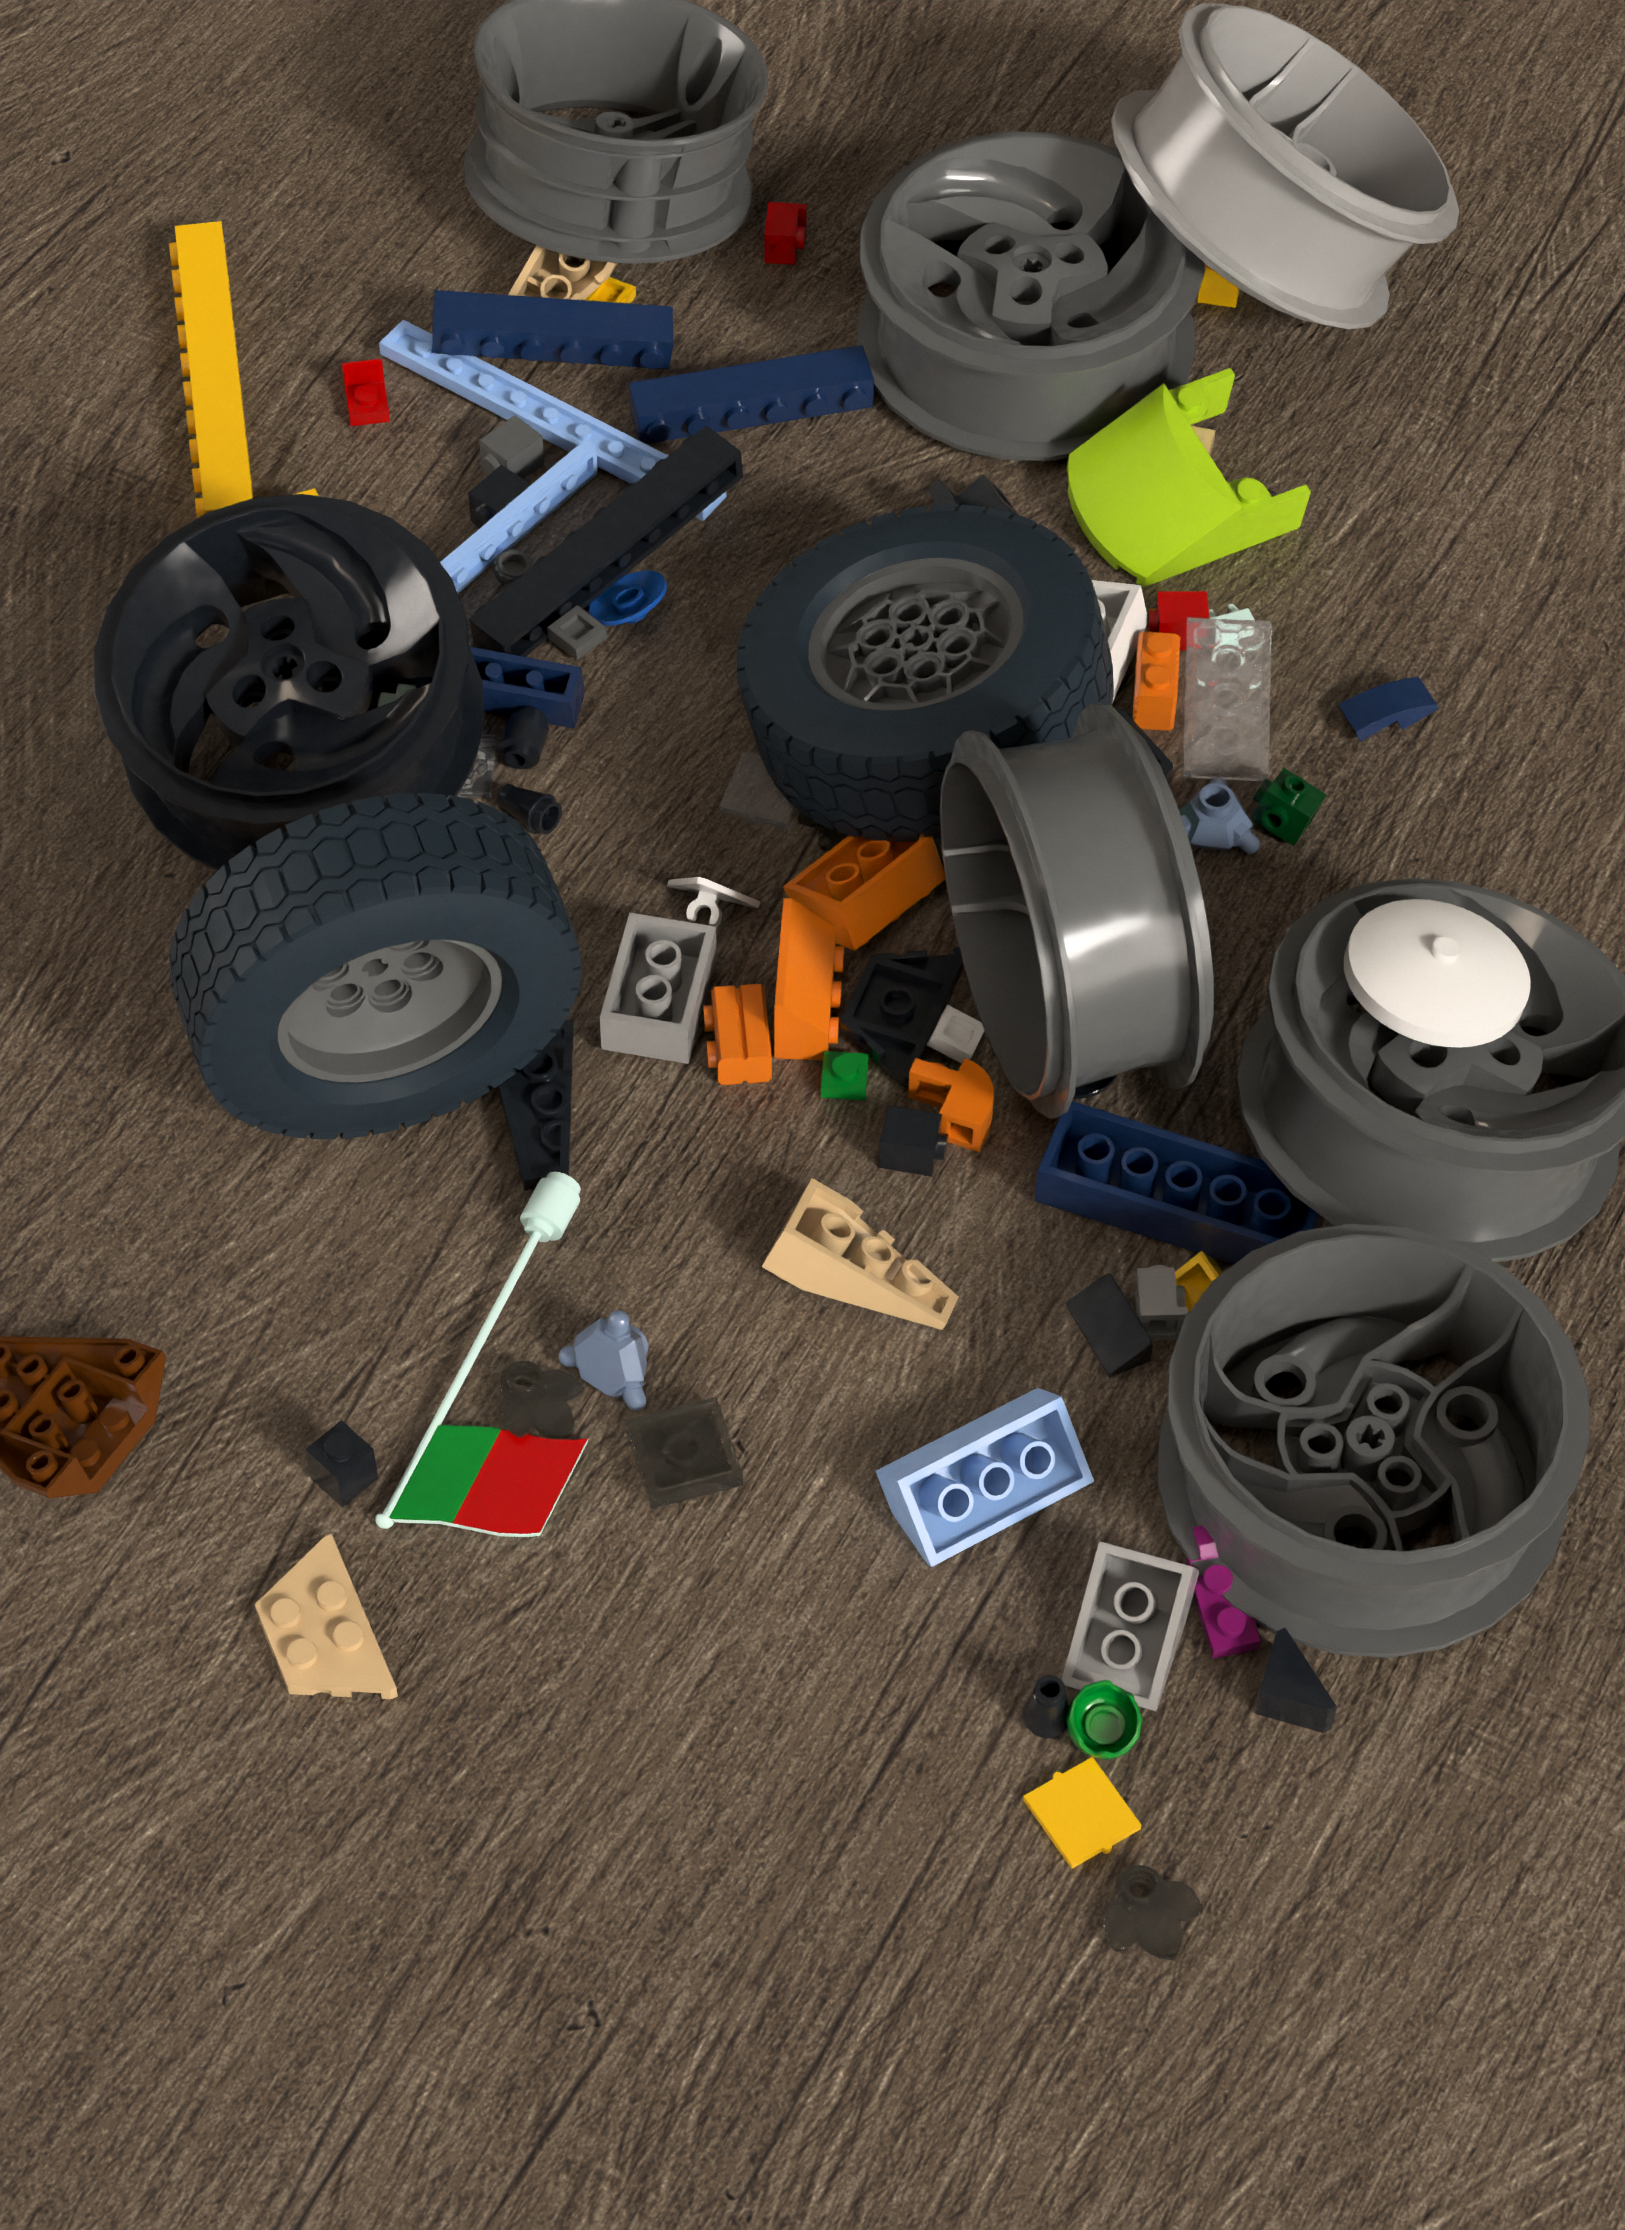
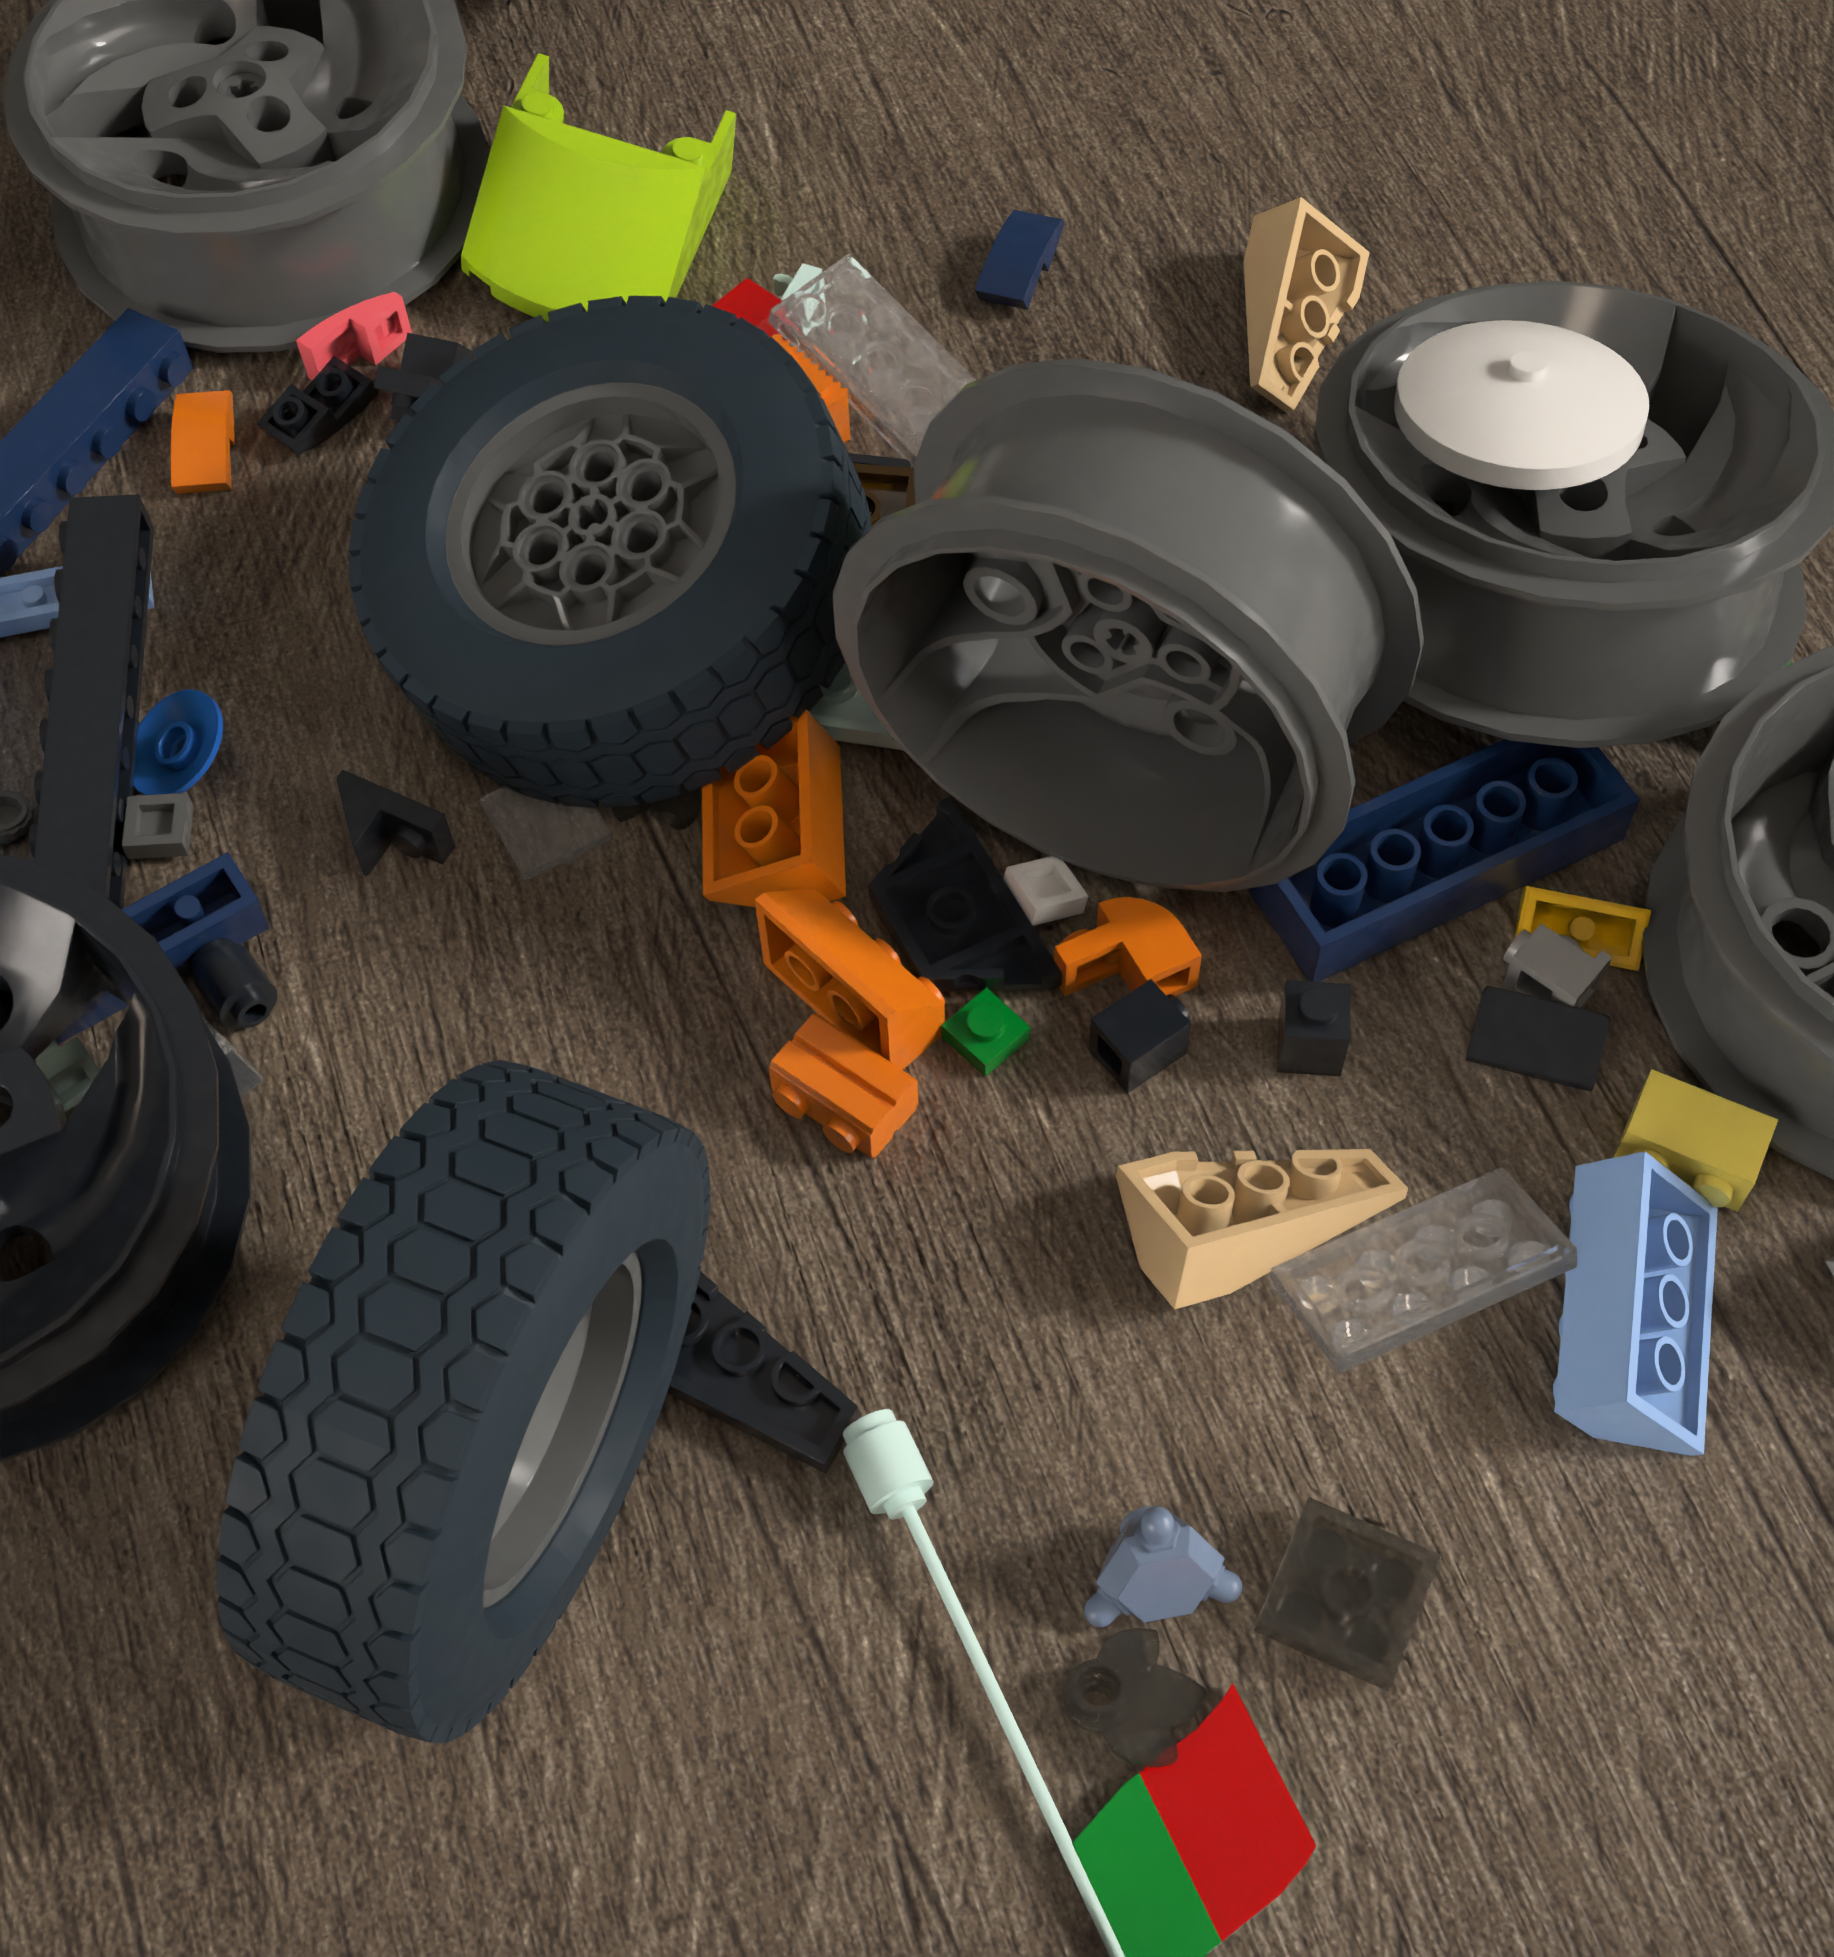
camera: 45 degrees left, 5 degrees up
(531, 808) = (329, 1052): black cone -> none
(658, 988) = (717, 1087): light grey brick -> none
(678, 719) = (385, 817): none -> black slope
(709, 896) = (633, 976): white piece -> none
(823, 449) = (202, 442): none -> orange slope
(894, 482) = (324, 407): none -> black slope
(901, 1359) = (1423, 1269): none -> clear plate
(967, 453) = (363, 330): none -> coral slope
(998, 1213) = (1313, 1028): none -> black brick
(1117, 1437) = (1699, 1138): none -> light yellow brick
(1526, 853) = (1297, 287): none -> tan wedge

